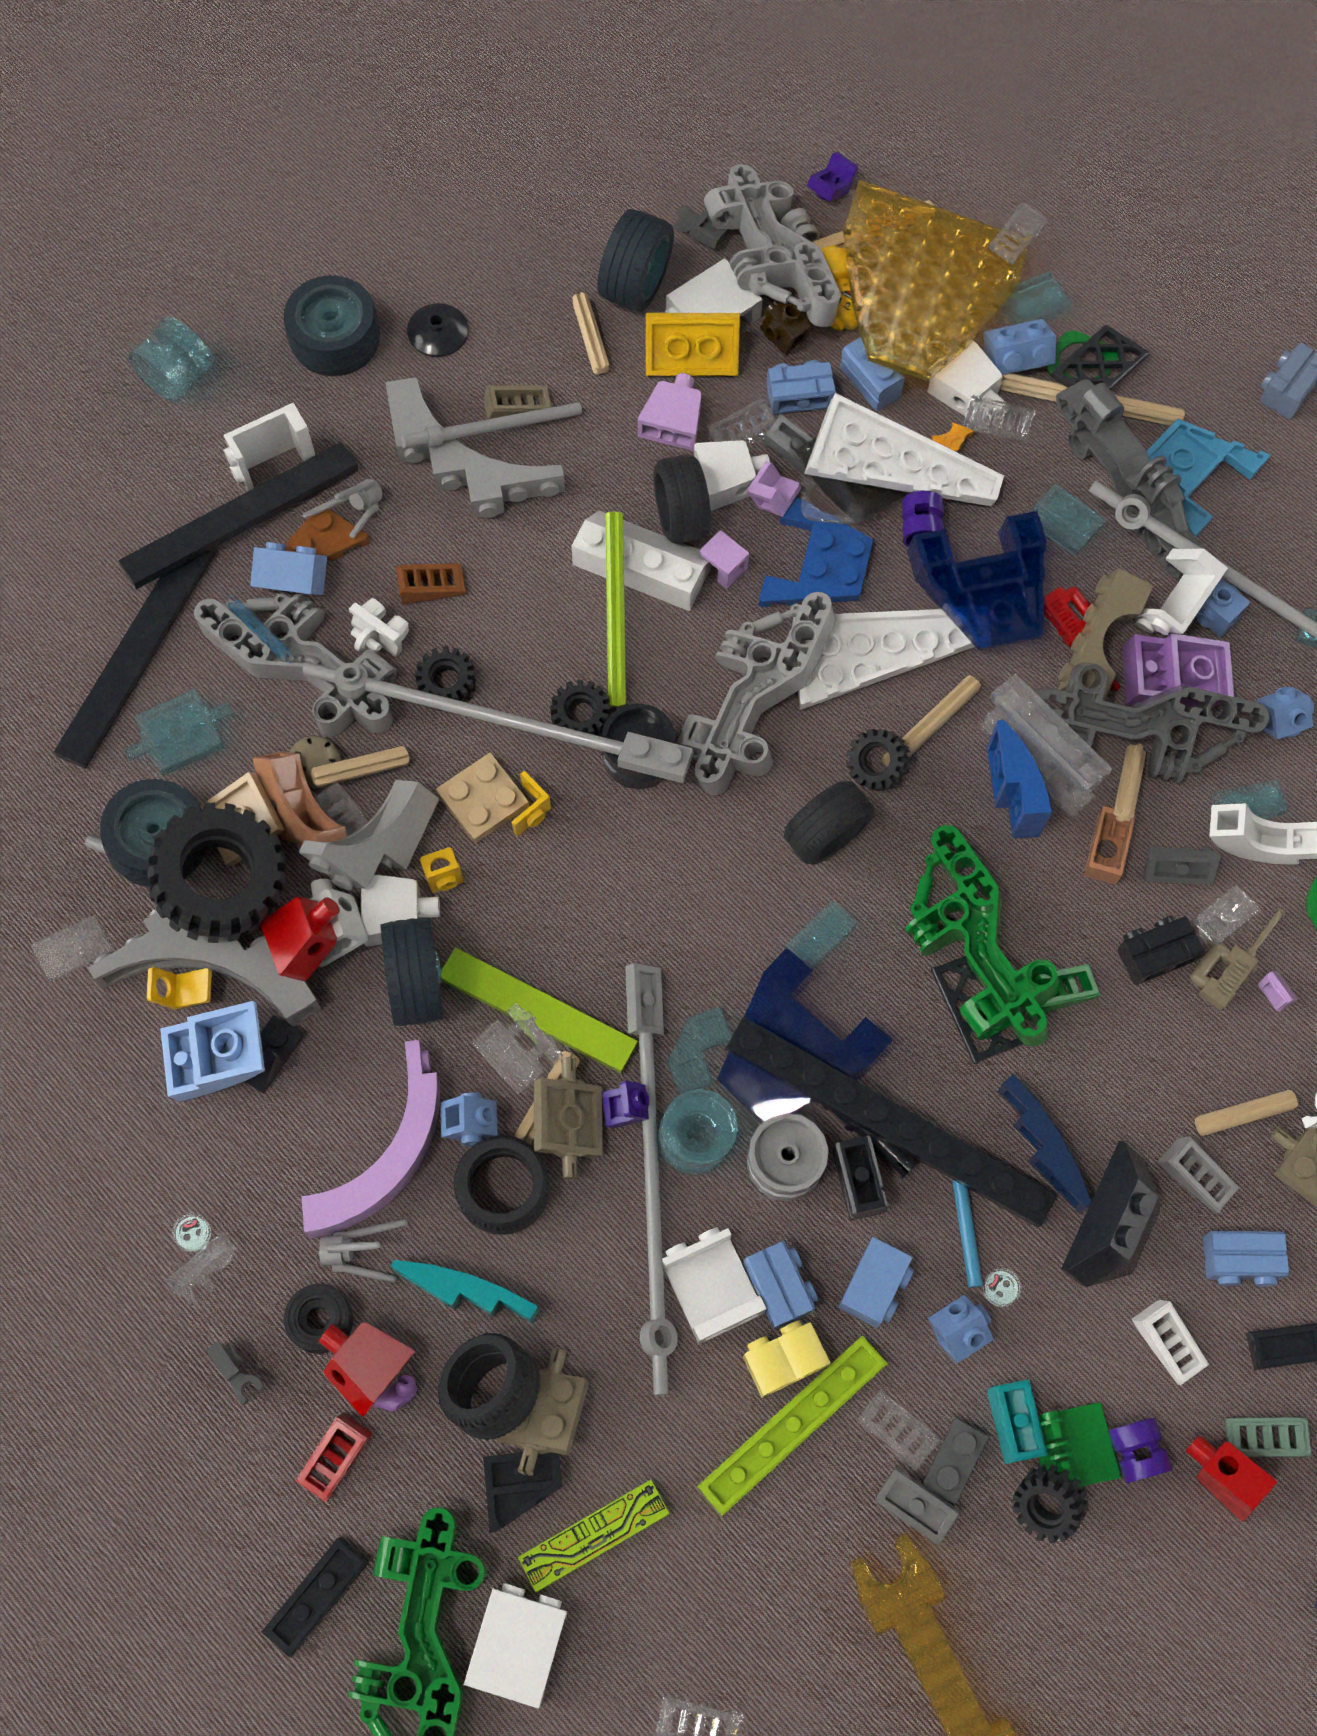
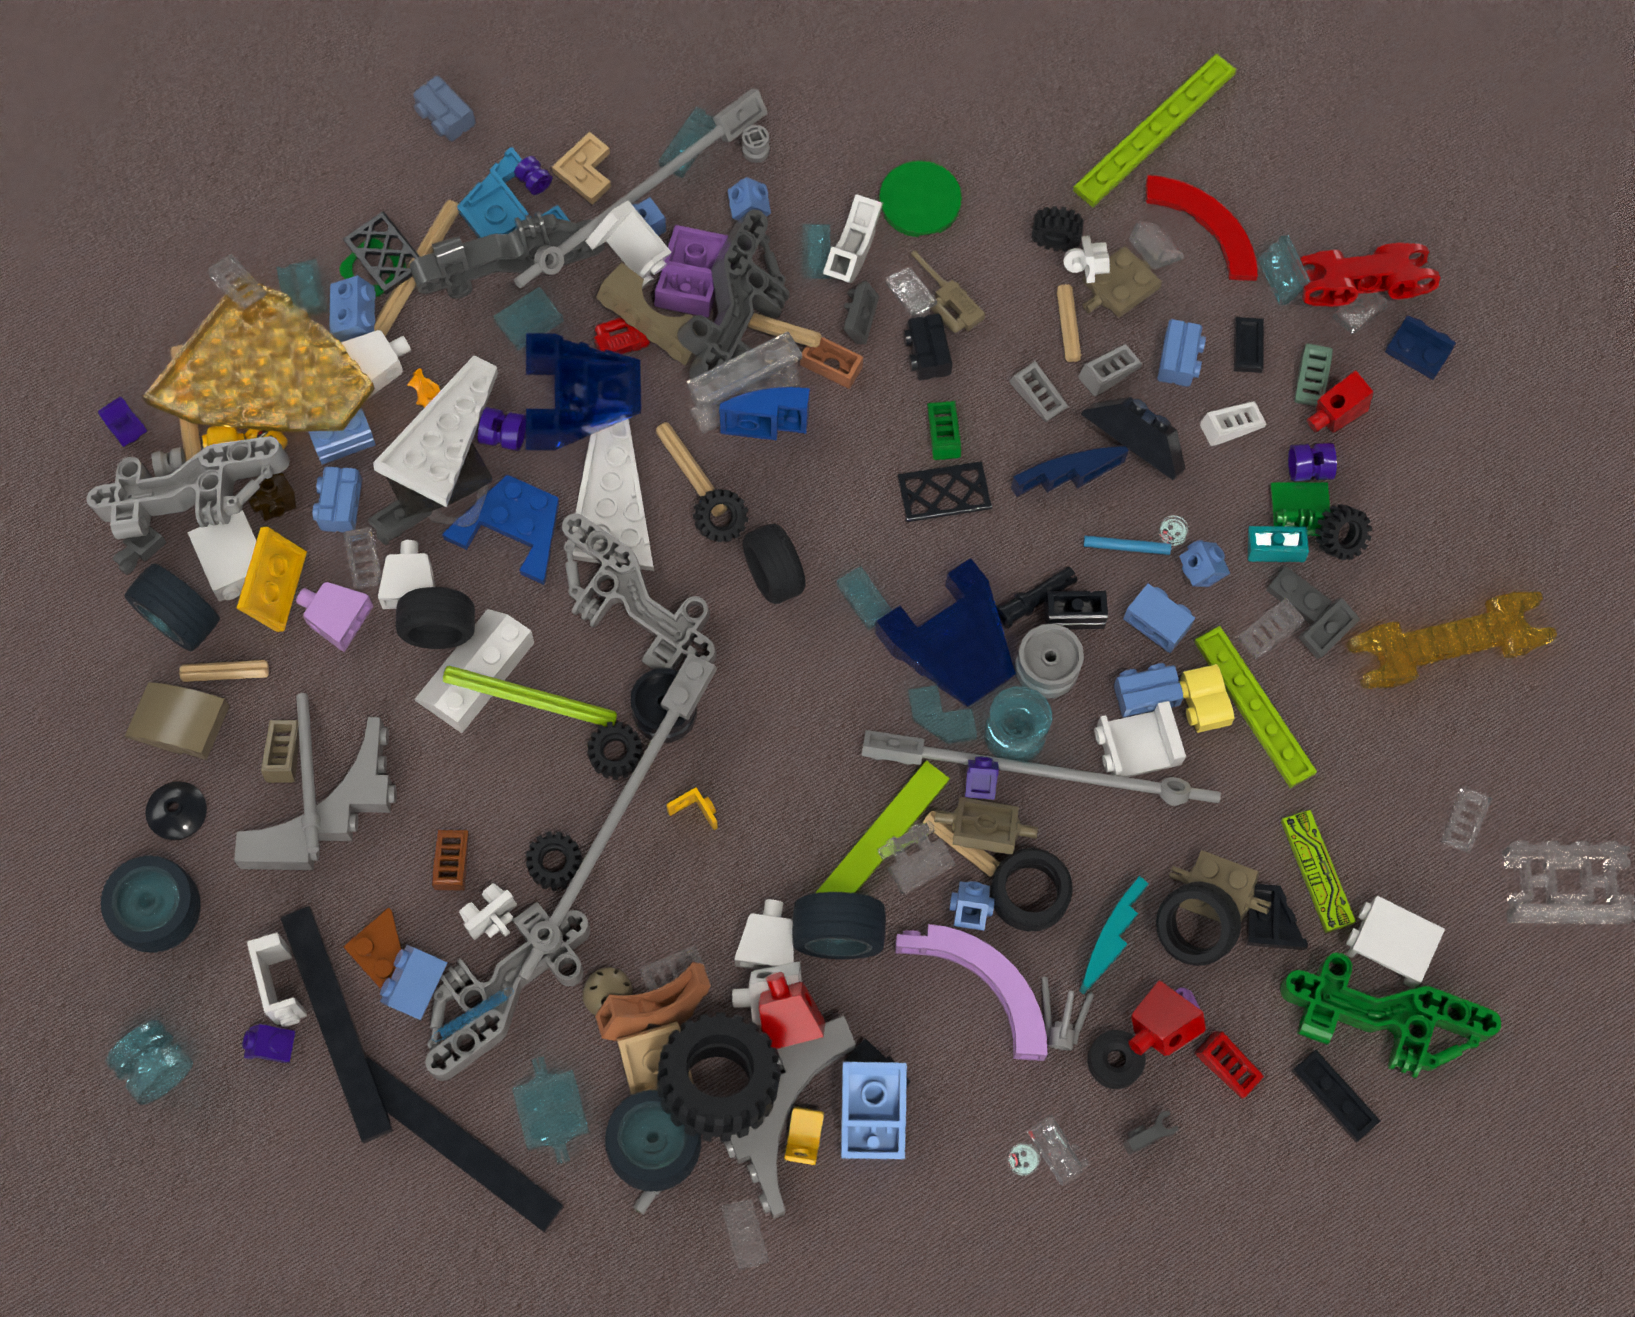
camera: 80 degrees left, 0 degrees up
(210, 463) = (268, 1043): none -> dark purple bracket
(360, 766) = (626, 948): tan axle -> none
(361, 496) = (348, 906): light grey plant -> none
(382, 842) = (706, 937): light grey arch -> none
(443, 878) = (748, 890): yellow bracket -> none
(482, 797) = (676, 850): tan plate -> none
(527, 306) = (178, 719): none -> dark tan slope
(727, 557) = (496, 597): lavender panel -> none
(773, 491) = (440, 543): lavender panel -> none
(890, 1122) = (1032, 579): black plate -> none
(980, 413) = (416, 347): clear slope -> none
(1006, 991) = (891, 472): green beam -> none
(1158, 1069) = (1024, 389): none -> light grey slope
(1239, 490) = (531, 173): none -> dark purple wheel
(1271, 527) = (579, 170): none -> tan plate
(1277, 991) = (977, 274): lavender slope -> none

